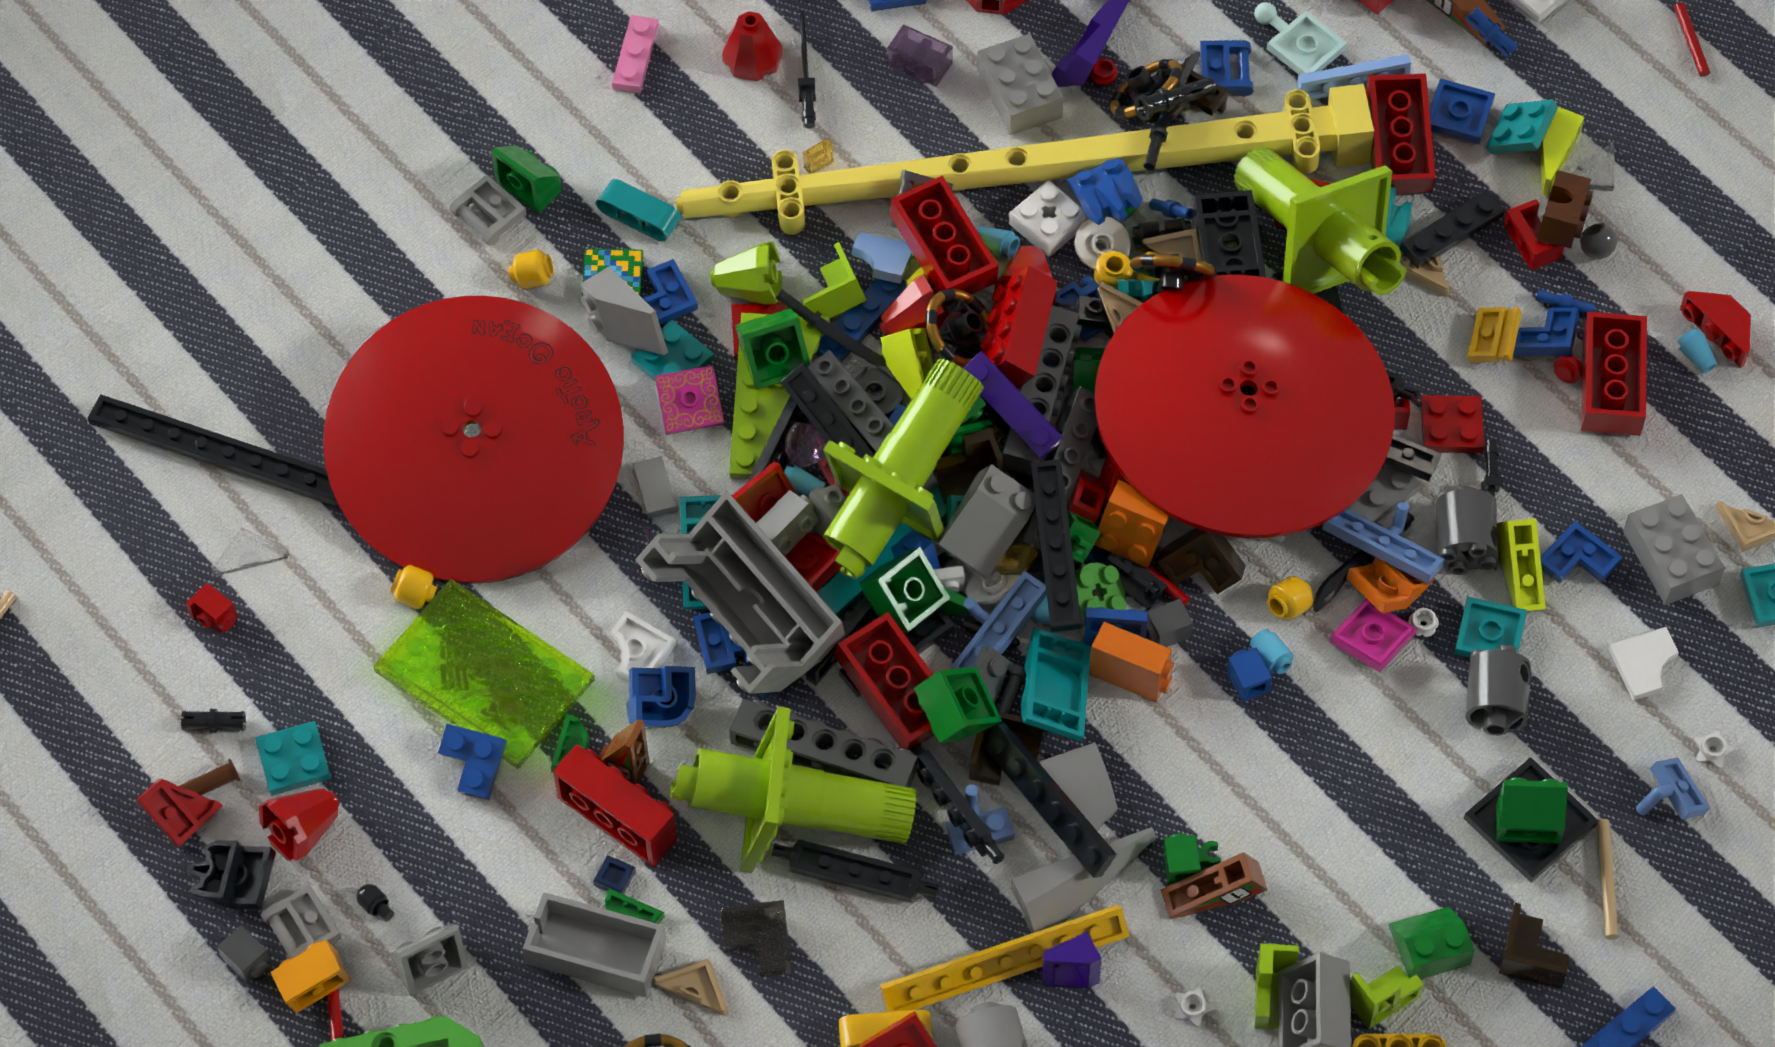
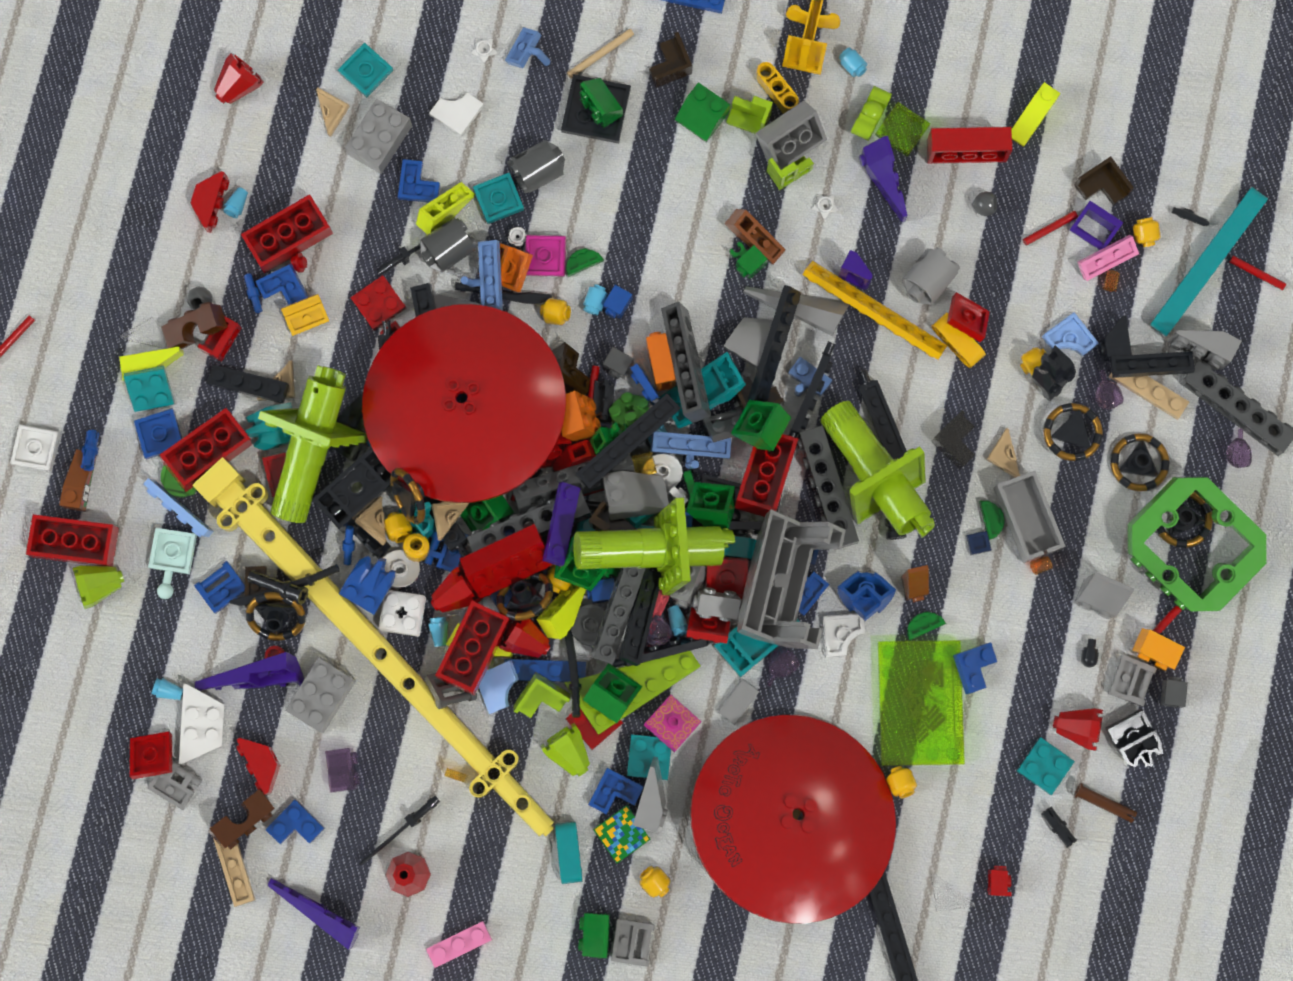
camera: 125 degrees left, 20 degrees up
(177, 809) = (1125, 797): red wing -> none
(523, 923) = (1041, 565): none -> clear orange hinge
(615, 804) = (947, 565): red brick -> none
(1107, 681) = (686, 362): none -> dark grey brick
(1336, 676) = (582, 260): none -> green tile

